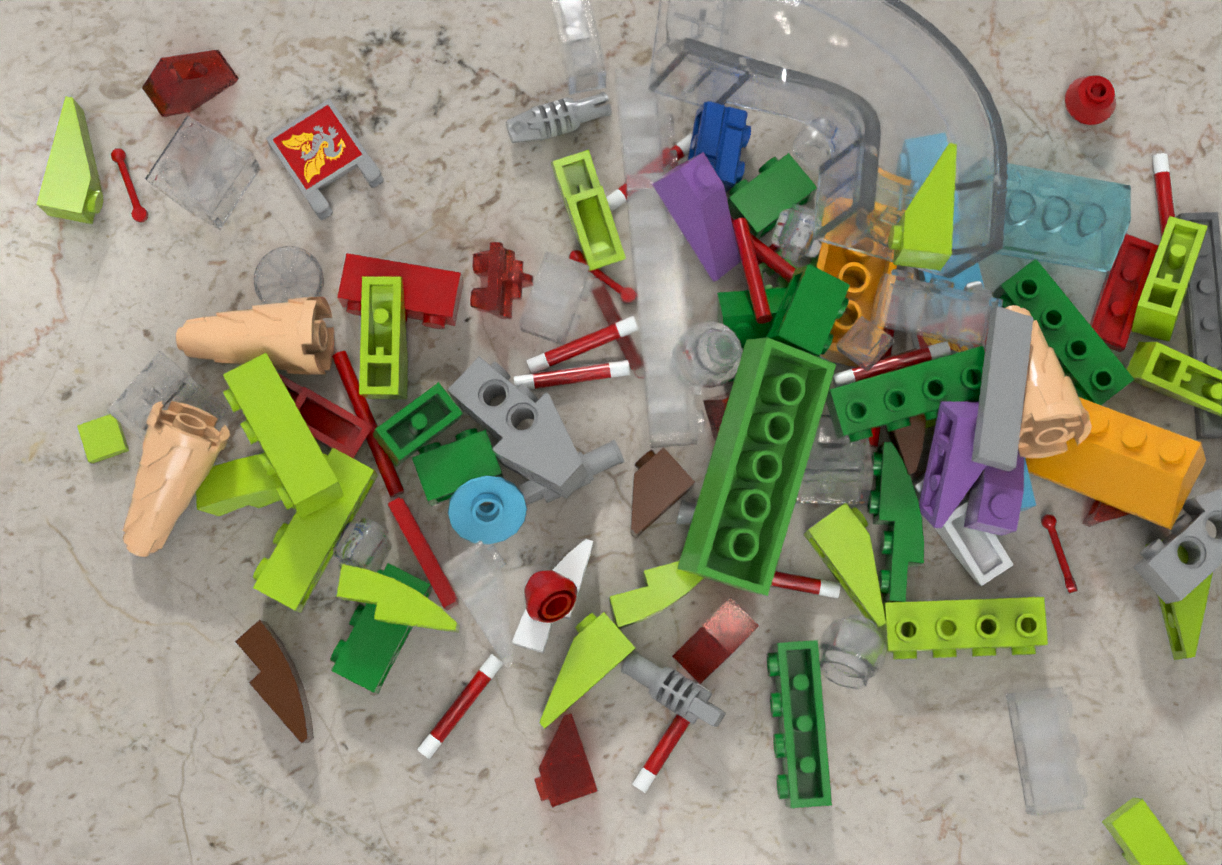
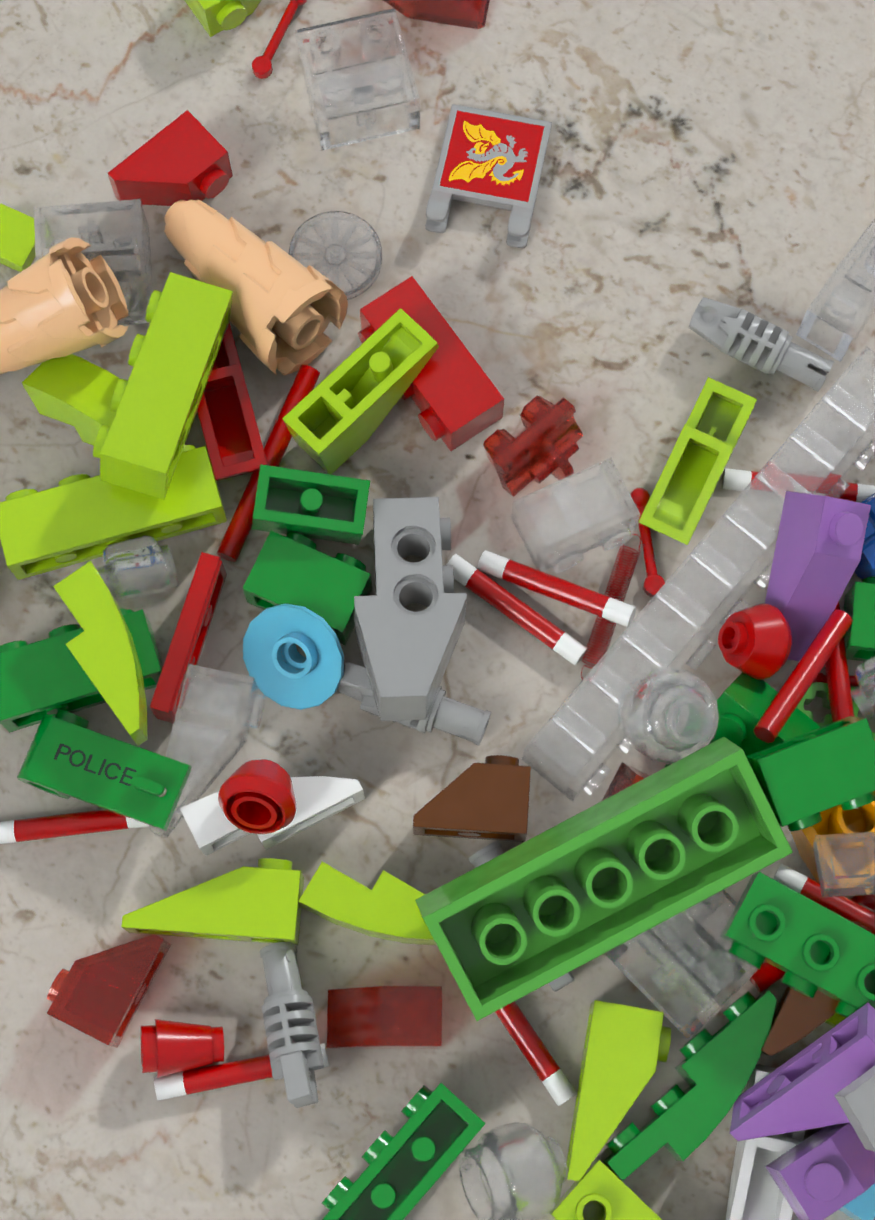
camera: 50 degrees right, 5 degrees down
(153, 314) = (174, 166): none -> red slope
(452, 663) = (103, 771): none -> green door
(629, 757) = (179, 1046): none -> red cone
(711, 274) = (756, 640): none -> red cone

